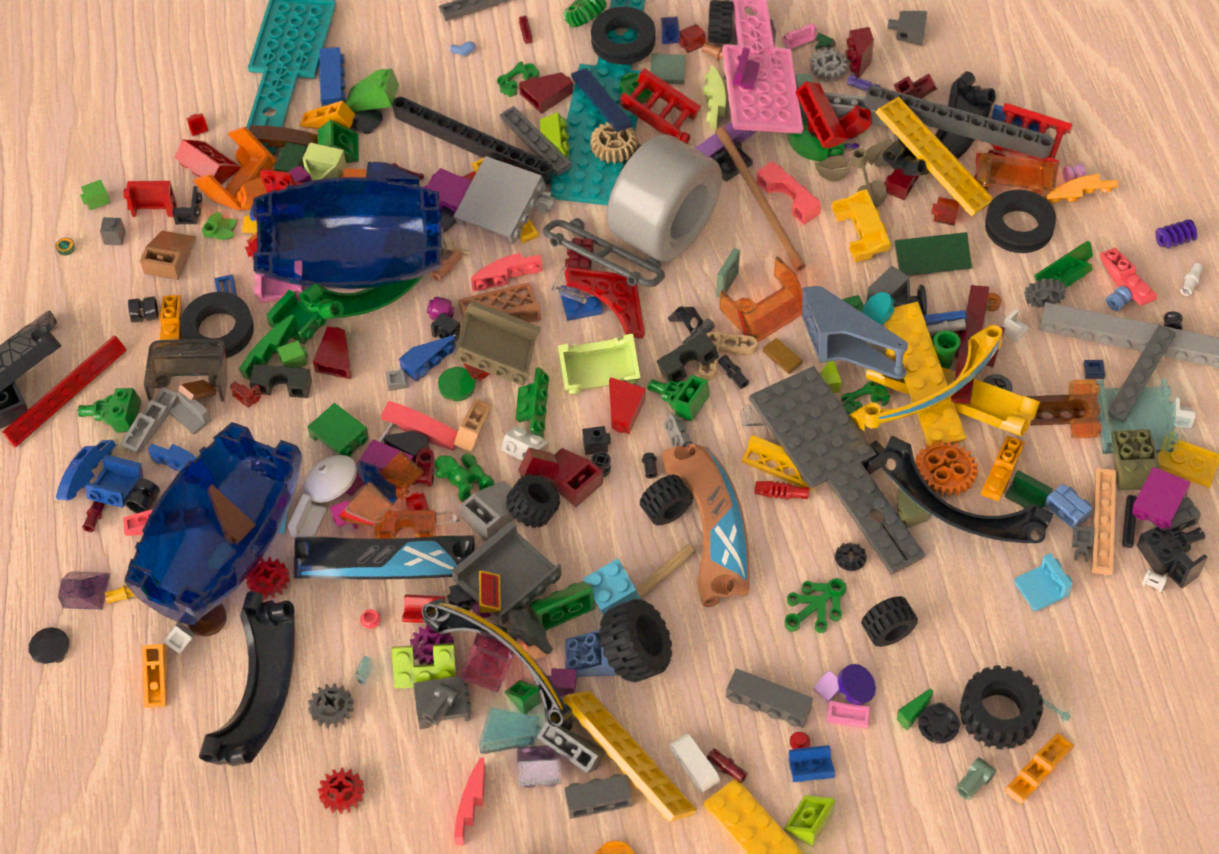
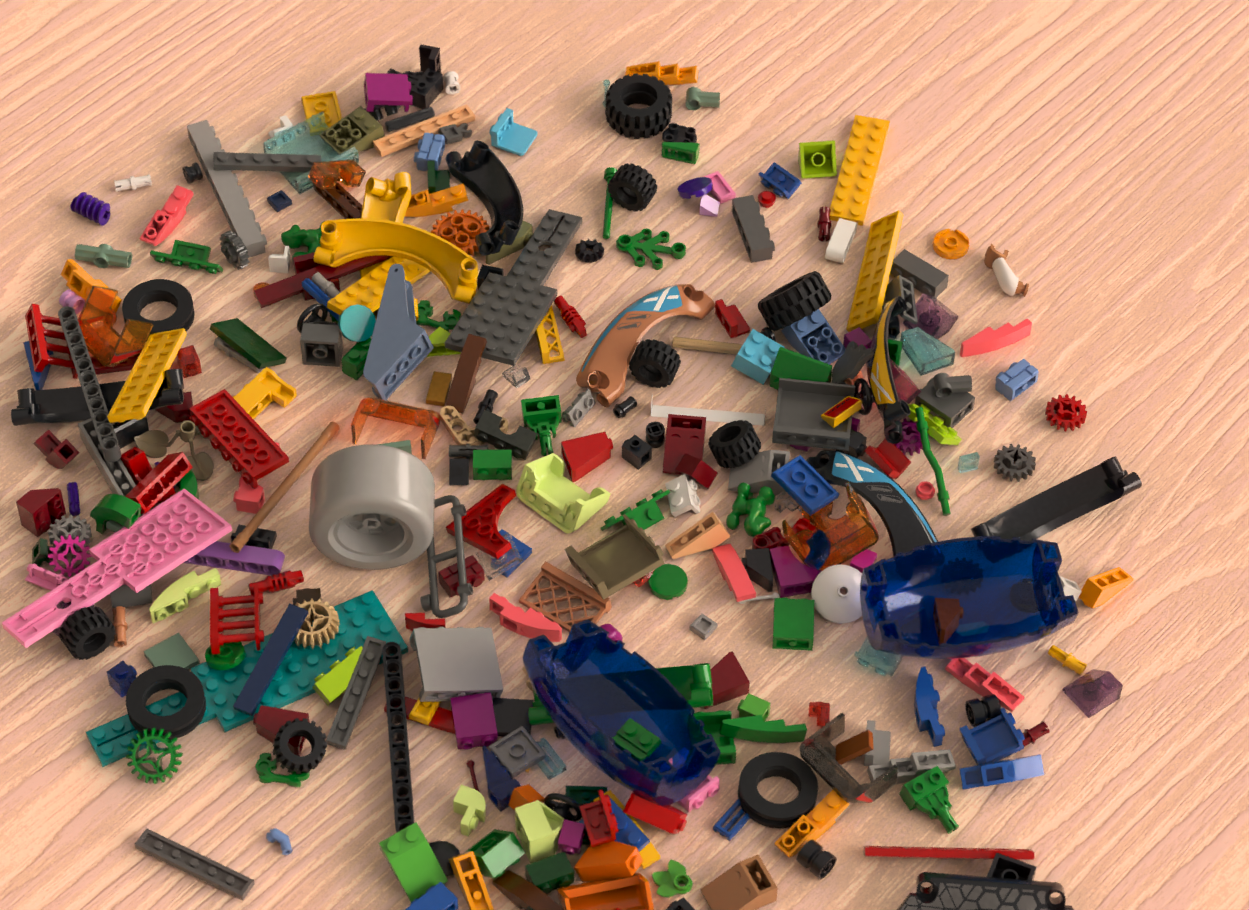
camera: 130 degrees left, 5 degrees down
(49, 645) = (1157, 677): black dish -> none
(297, 379) = (774, 688): pearl dark grey arch -> none
(334, 262) = (636, 740): none -> green plate
(384, 152) = (471, 805): none -> yellowish green brick
(411, 780) = (1016, 379): none -> medium blue brick
(417, 641) = (922, 427): none -> green bar
(424, 357) = (667, 616): blue slope -> none
(443, 515) = (805, 485): none -> blue tile
(445, 327) = (624, 620): black brick -> none
(514, 77) = (306, 730): none -> black tyre
(525, 29) = (211, 805): dark red axle -> none
(561, 211) = (418, 620): none -> red slope
(595, 522) = (711, 415): none -> white sticker
(668, 337) = (492, 464): none -> green brick
(679, 608) = (731, 319): none -> red panel
(692, 38) = (115, 653): clear red brick -> none
(746, 71) = (157, 551): magenta panel -> none
(773, 367) = (465, 372): none -> reddish brown slope
(804, 48) = (60, 555): none -> dark pink gear
(813, 72) = (115, 508): none -> green arch
(826, 182) = (237, 437): none -> red bracket
(929, 630) = (608, 174): none -> green piece
(946, 345) = (349, 272): green plant -> none
(1019, 357) = (296, 238): none -> green animal
(1113, 217) = (103, 255): none -> sand green piece
(1119, 298) = (194, 213): medium blue wheel -> none

